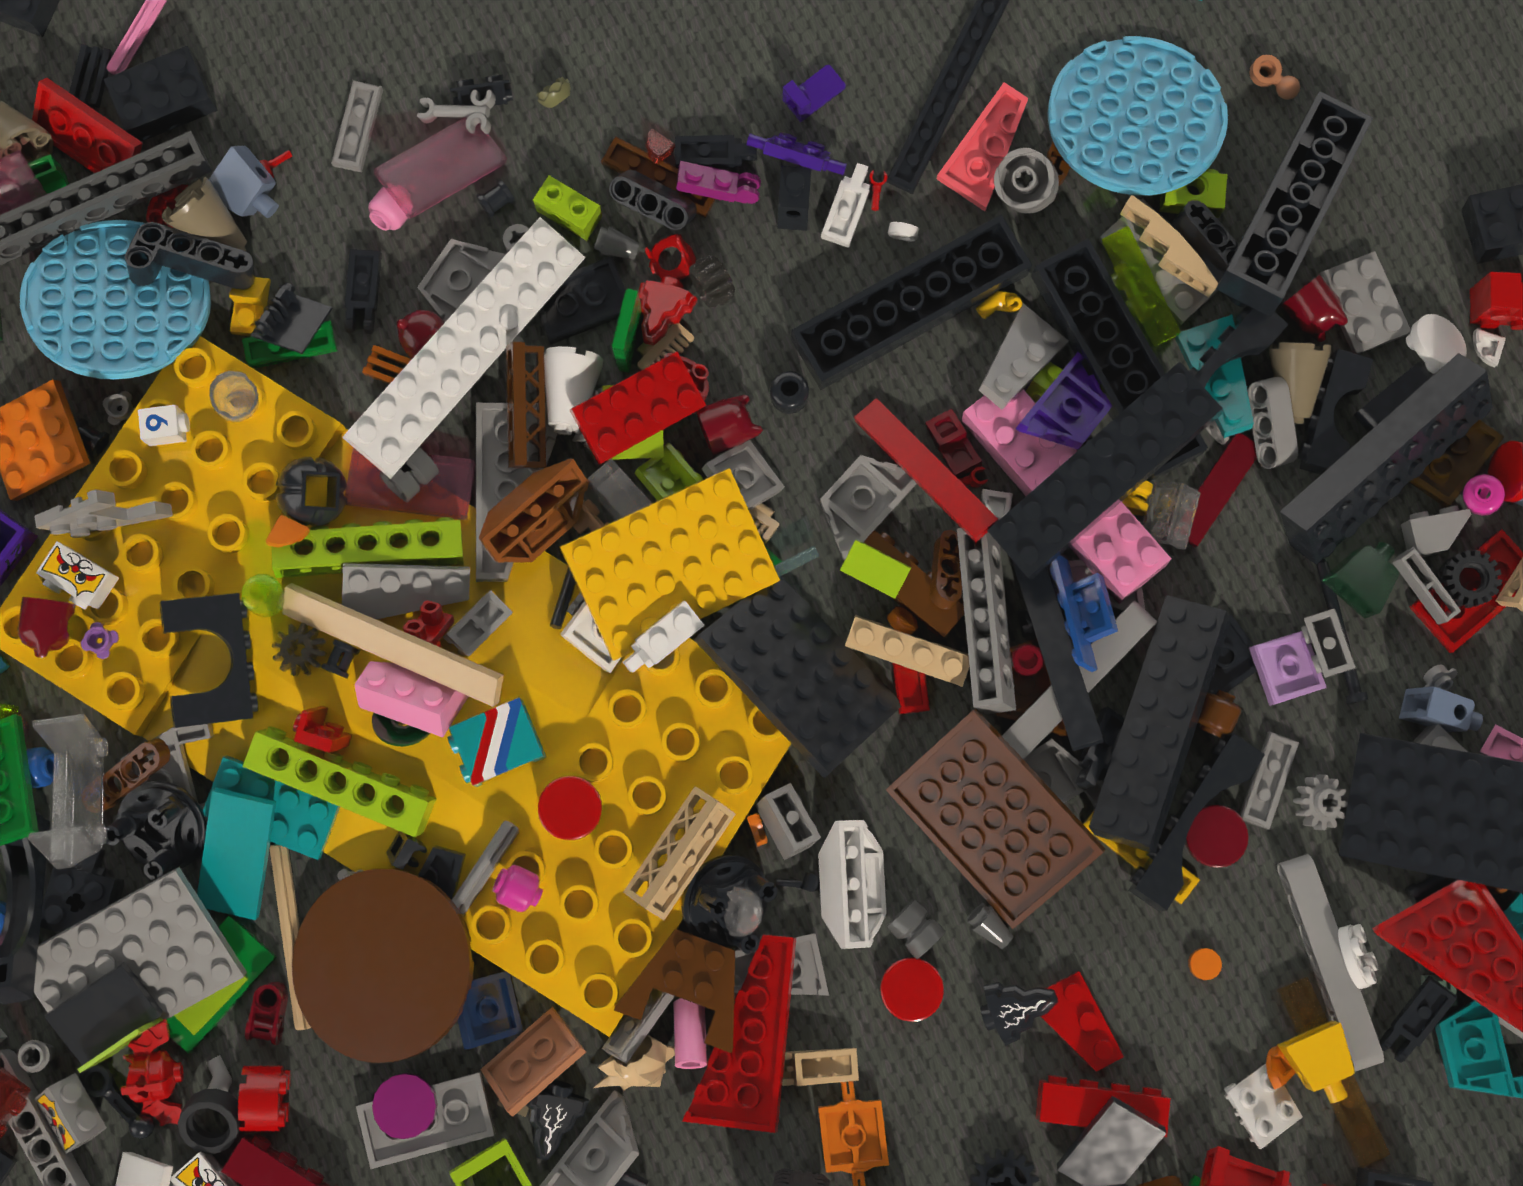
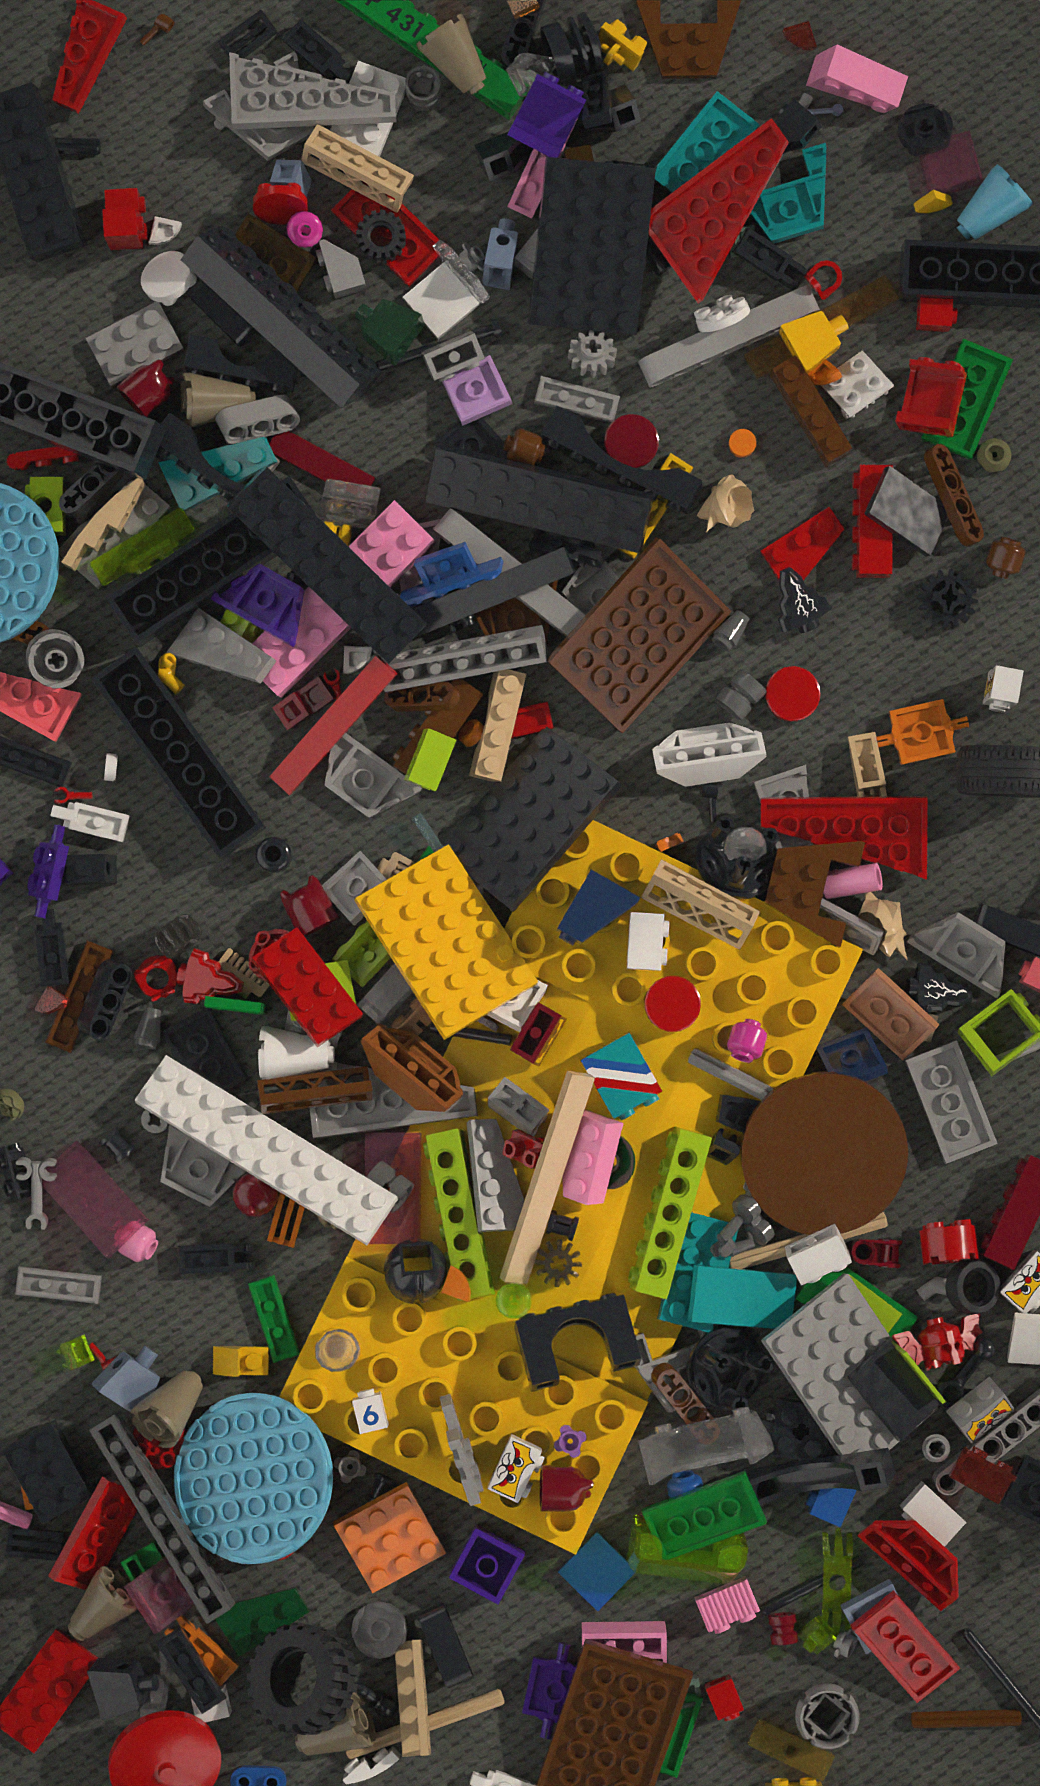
camera: 100 degrees left, 5 degrees up
(230, 265) = (211, 1413): black beam -> none
(270, 945) = (818, 1255): none -> white brick
(281, 135) = (76, 1352): none -> clear neon green tile
(290, 320) = (253, 1318): black hinge -> none
(311, 878) = (755, 1227): none -> dark grey piece
(313, 733) = (633, 1234): red bracket -> none
(404, 1106) = (941, 1120): magenta tile -> none
(555, 654) = (538, 1034): none -> dark red brick
(567, 208) = (120, 1077): lime brick -> none
(643, 785) = (646, 941): none -> white brick
(663, 637) = (513, 939): white hinge -> none
(687, 728) = (594, 908): none -> dark blue slope
(718, 183) = (82, 942): magenta hinge -> none
(787, 821) = (660, 815): light grey brick -> none
(1027, 659) = (496, 619): dark red tile -> none
(1136, 938) = (728, 503): none -> tan hair
(1236, 1047) = (810, 411): none -> reddish brown brick
(1246, 192) = (41, 457): none -> red hinge
(1383, 1070) = (815, 284): none -> red piece
(1391, 640) = (441, 300): none -> white tile
(1421, 588) = (395, 278): light grey piece -> none
(1424, 664) = (456, 265): none -> clear tile

